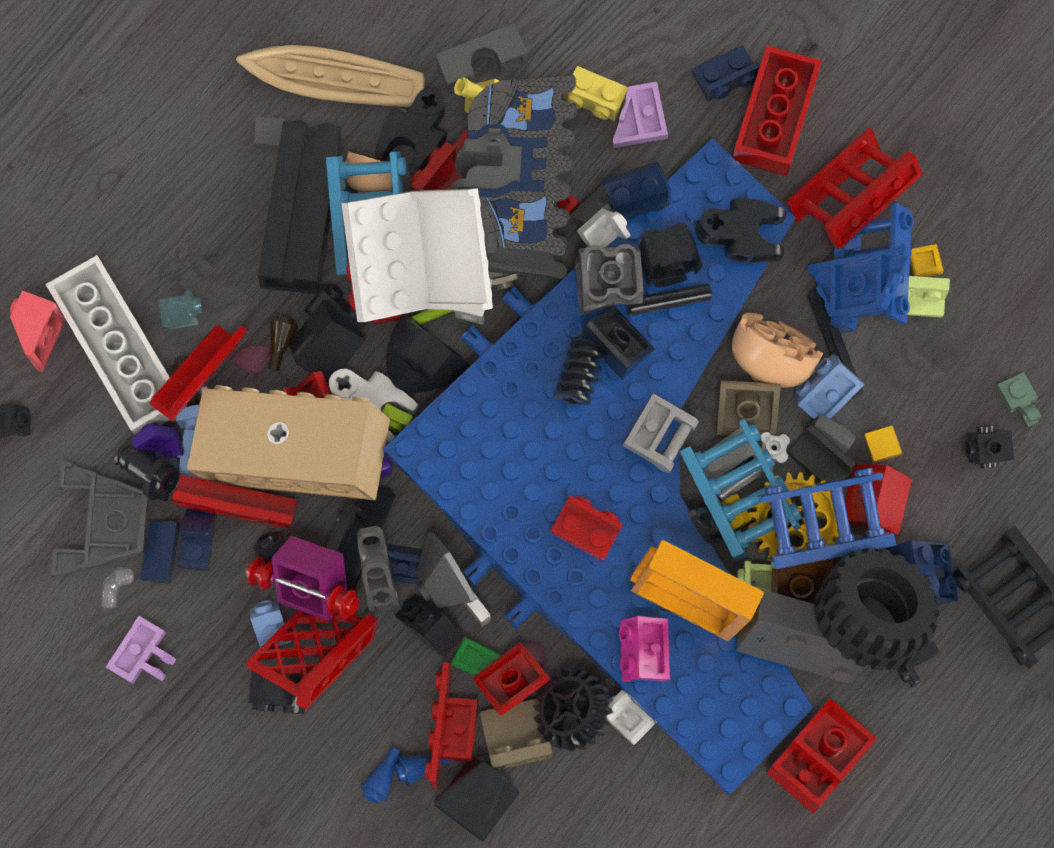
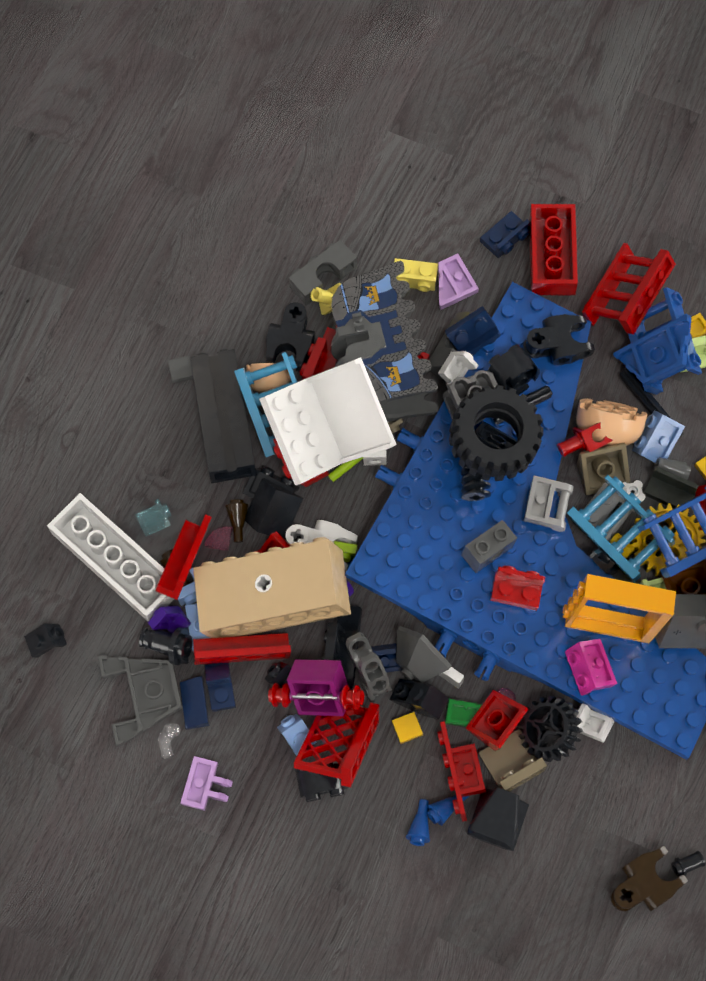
camera: 15 degrees left, 5 degrees down
(37, 326) = (49, 559): coral slope -> none
(334, 75) = (216, 314): tan piece -> none
(404, 656) = (407, 728): none -> yellow tile
(419, 359) = (348, 502): black brick -> none
(568, 466) = (489, 546): none -> dark grey brick
(621, 292) = (501, 405): none -> black tyre
(730, 366) = (582, 440): none -> red bracket

